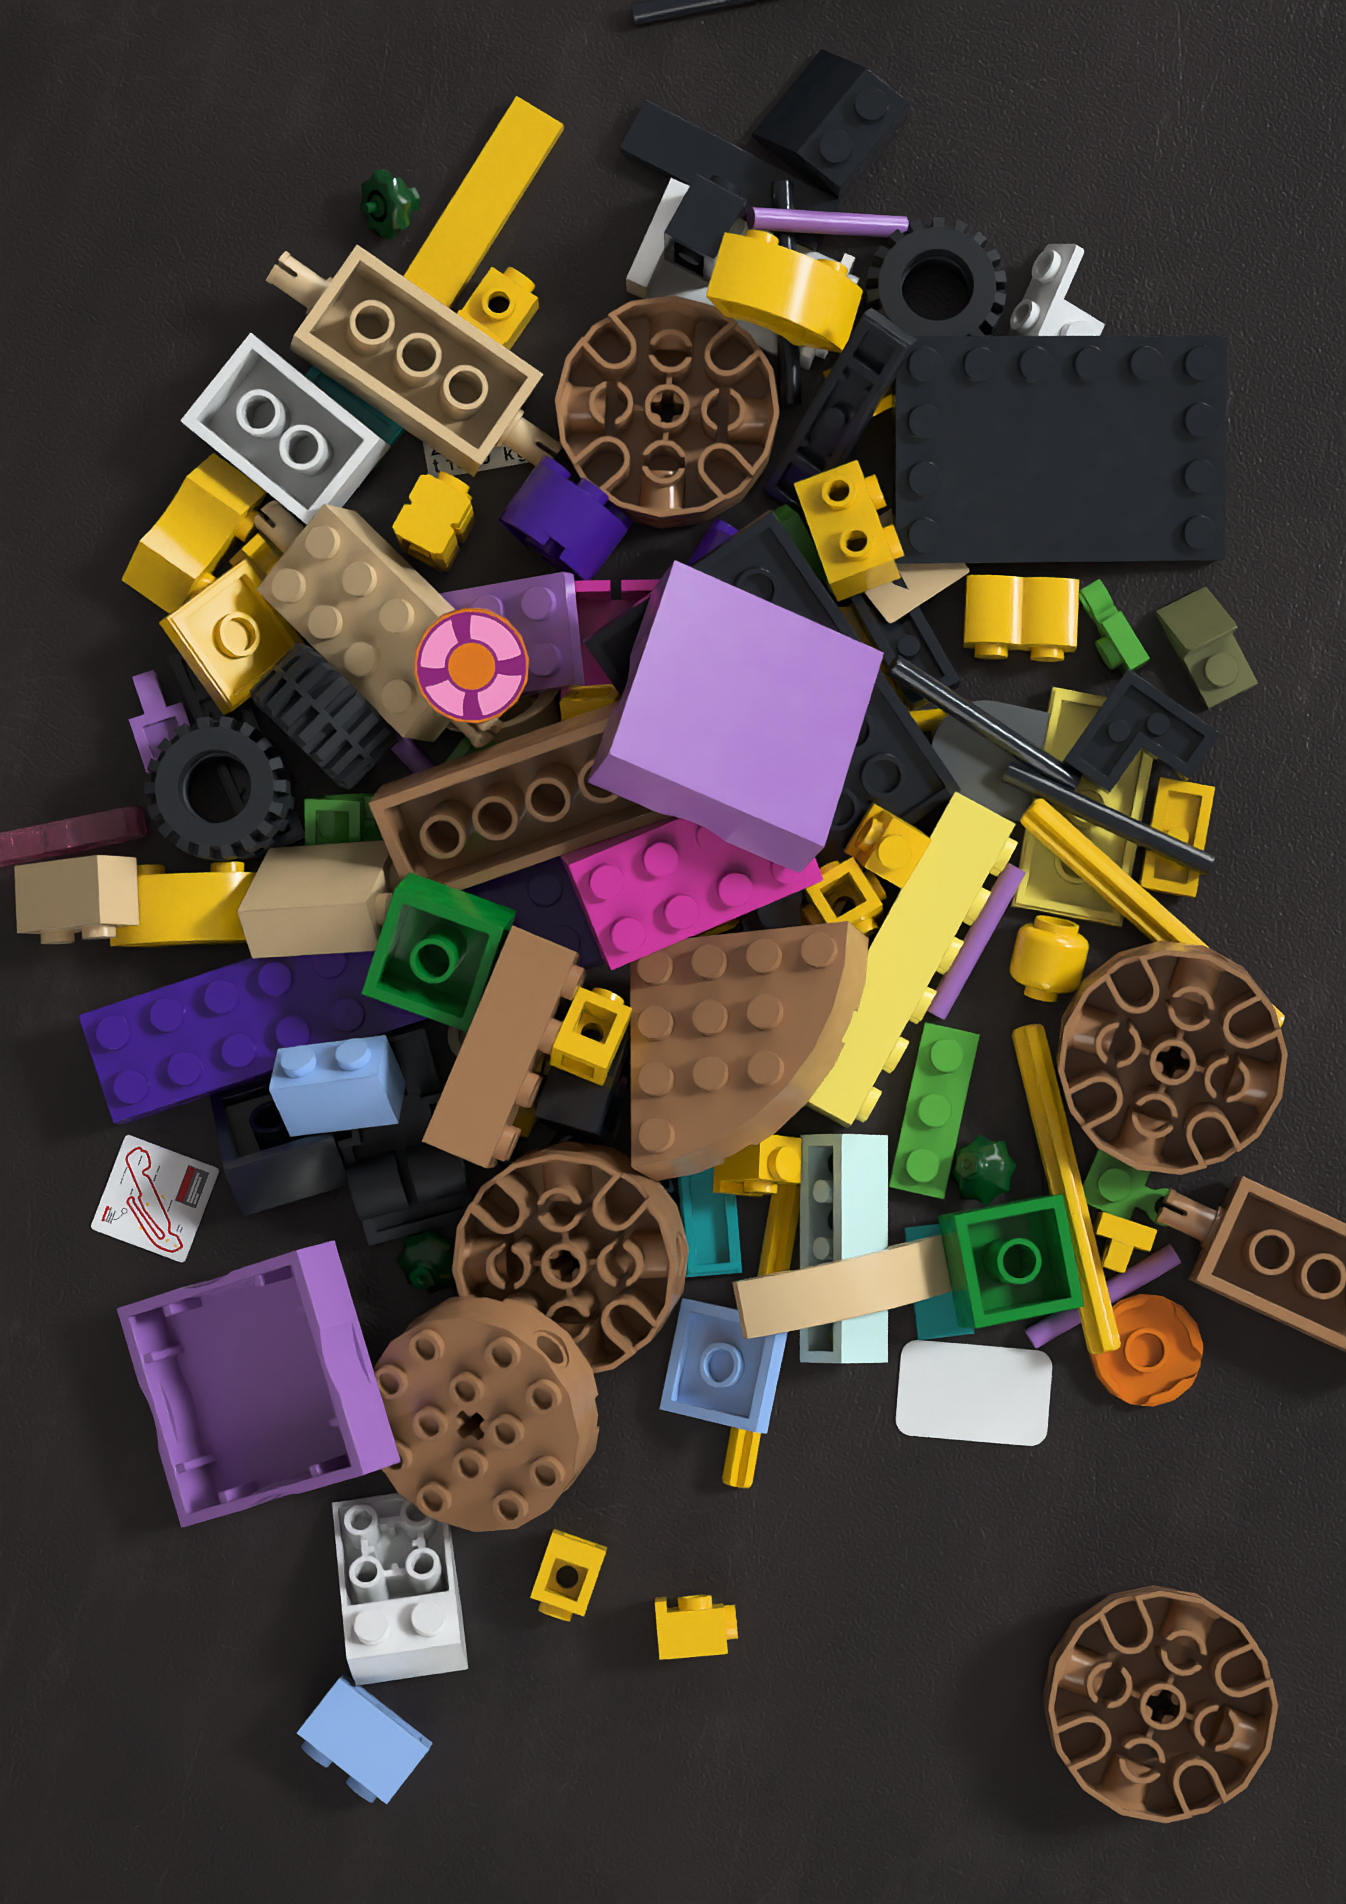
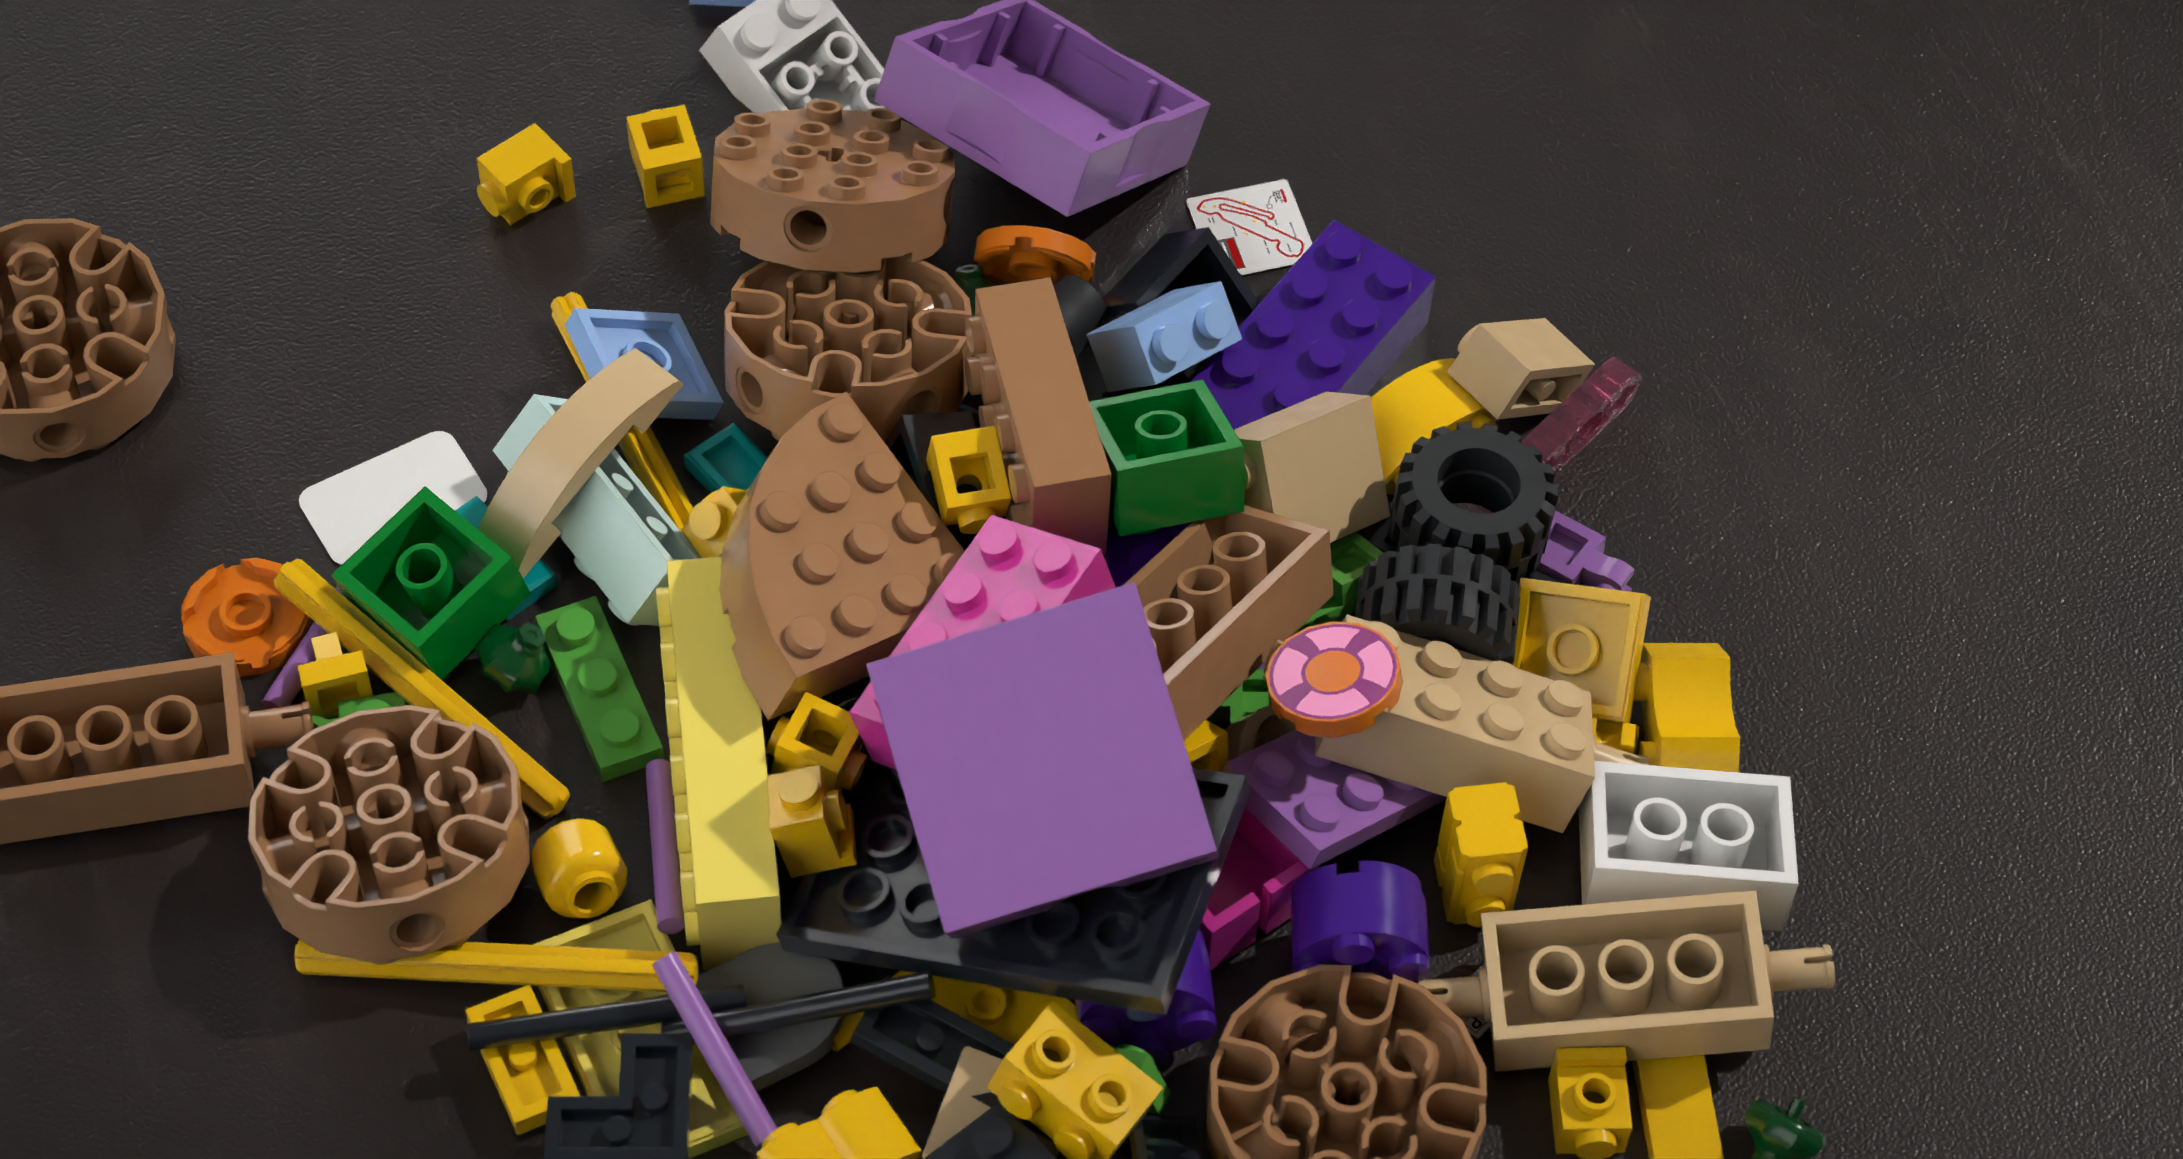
camera: 140 degrees right, 30 degrees down
(363, 1255) = (1032, 253): none -> orange tile
(1055, 738) = (714, 1047): none -> medium lavender bar

